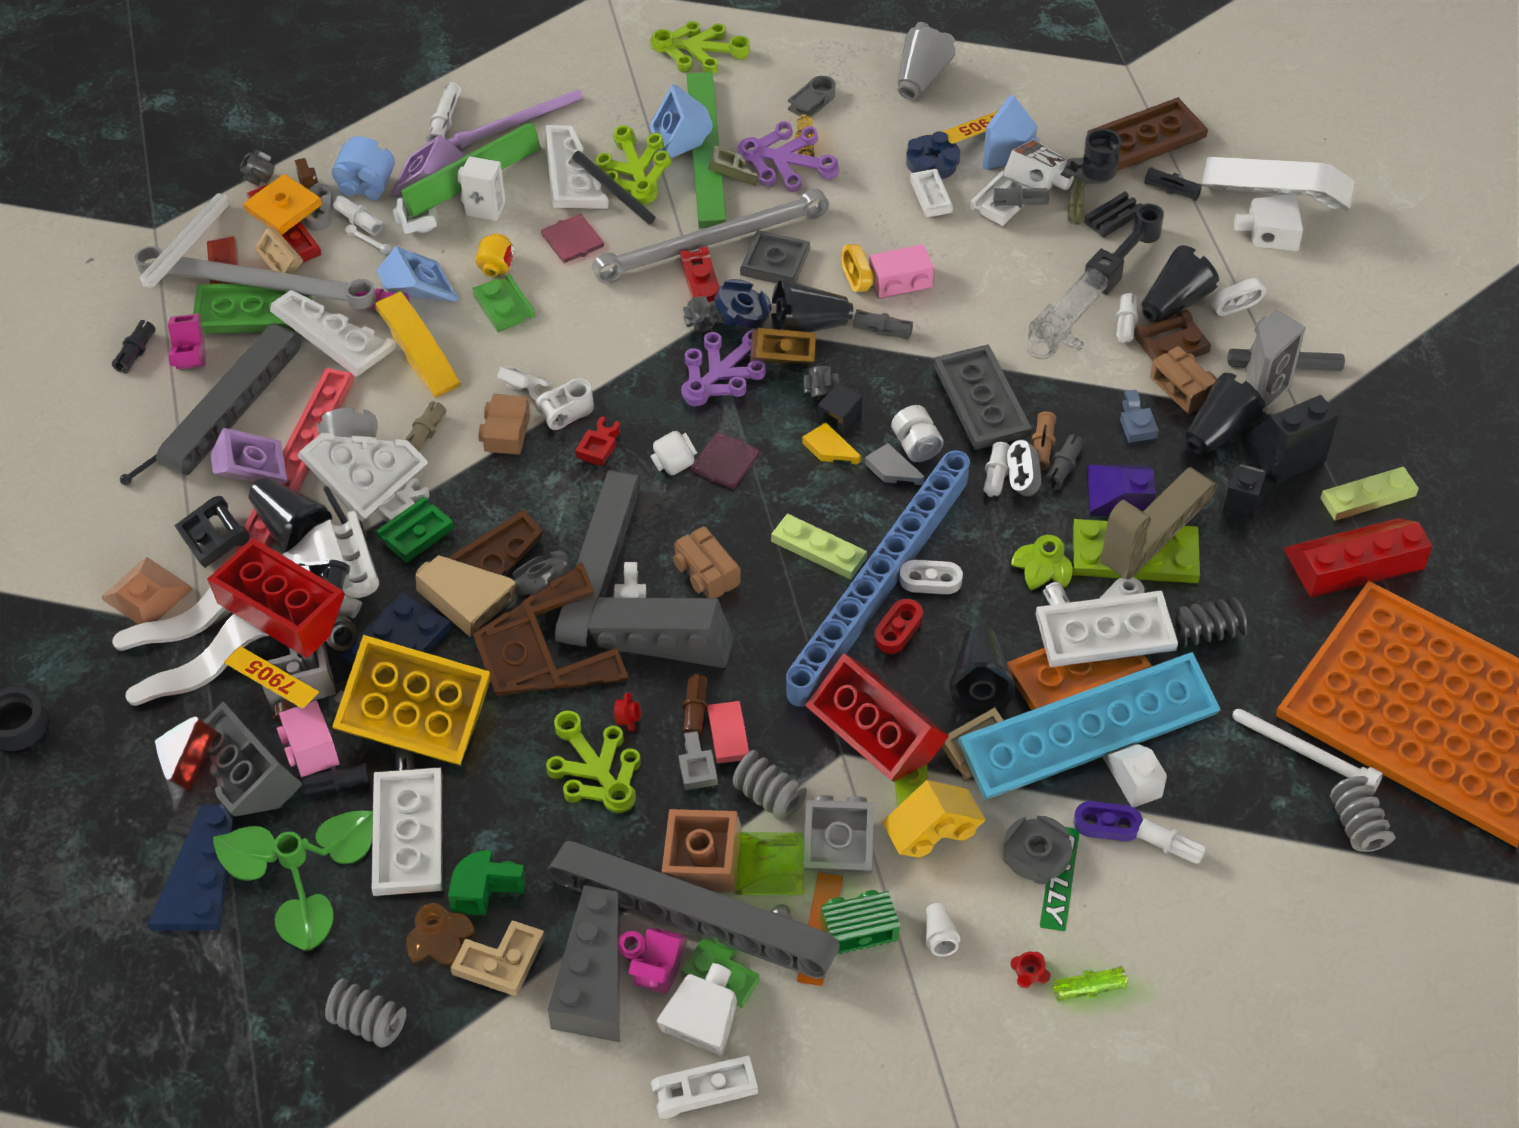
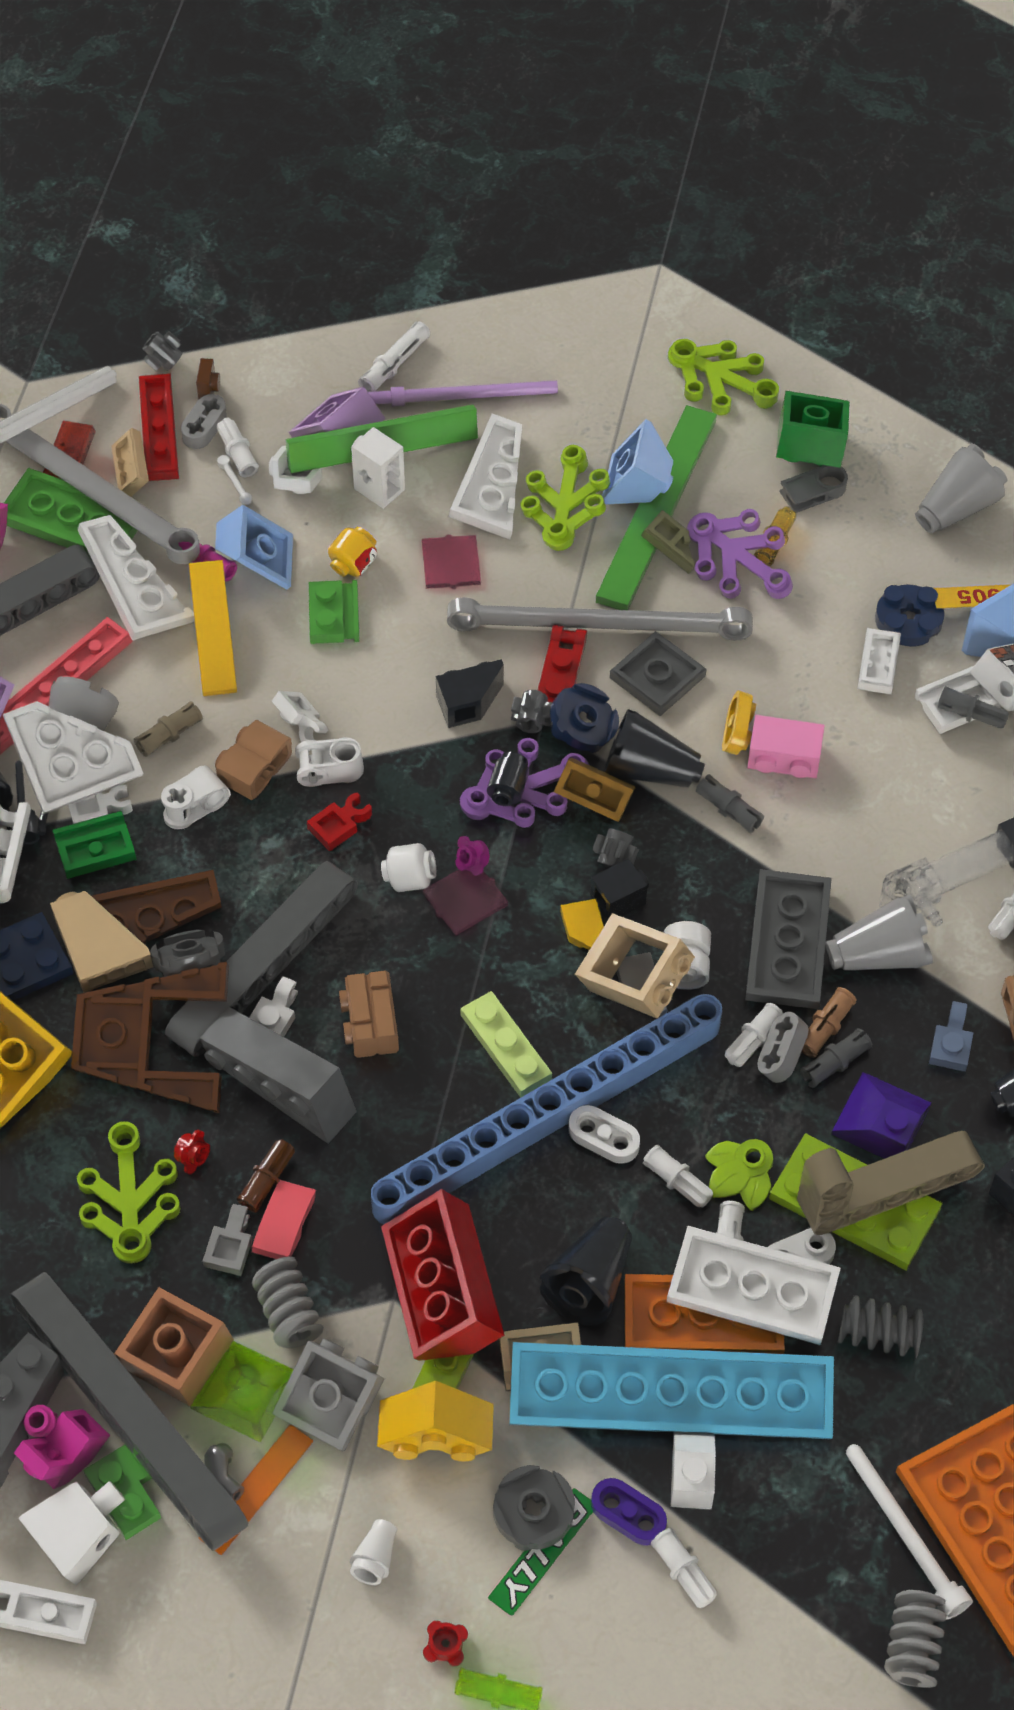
camera: 25 degrees right, 5 degrees up
(282, 204) = (163, 405): light orange plate -> none
(362, 168) = (267, 394): light blue brick -> none
(475, 468) = (196, 794): none -> white piece
(613, 187) = (525, 518): black bar -> none
(642, 319) = (469, 692): none -> black slope
(714, 363) = (508, 779): none -> black brick
(723, 422) = (472, 855): none -> magenta plate
(793, 56) = (813, 429): none -> green brick
(861, 450) = (609, 952): none -> tan window
(861, 920) = (293, 1503): green brick -> none
(896, 628) = (532, 1177): red plate -> none
(1001, 584) = (677, 1176): none -> white axle
(1053, 368) = (883, 940): none -> light grey cone

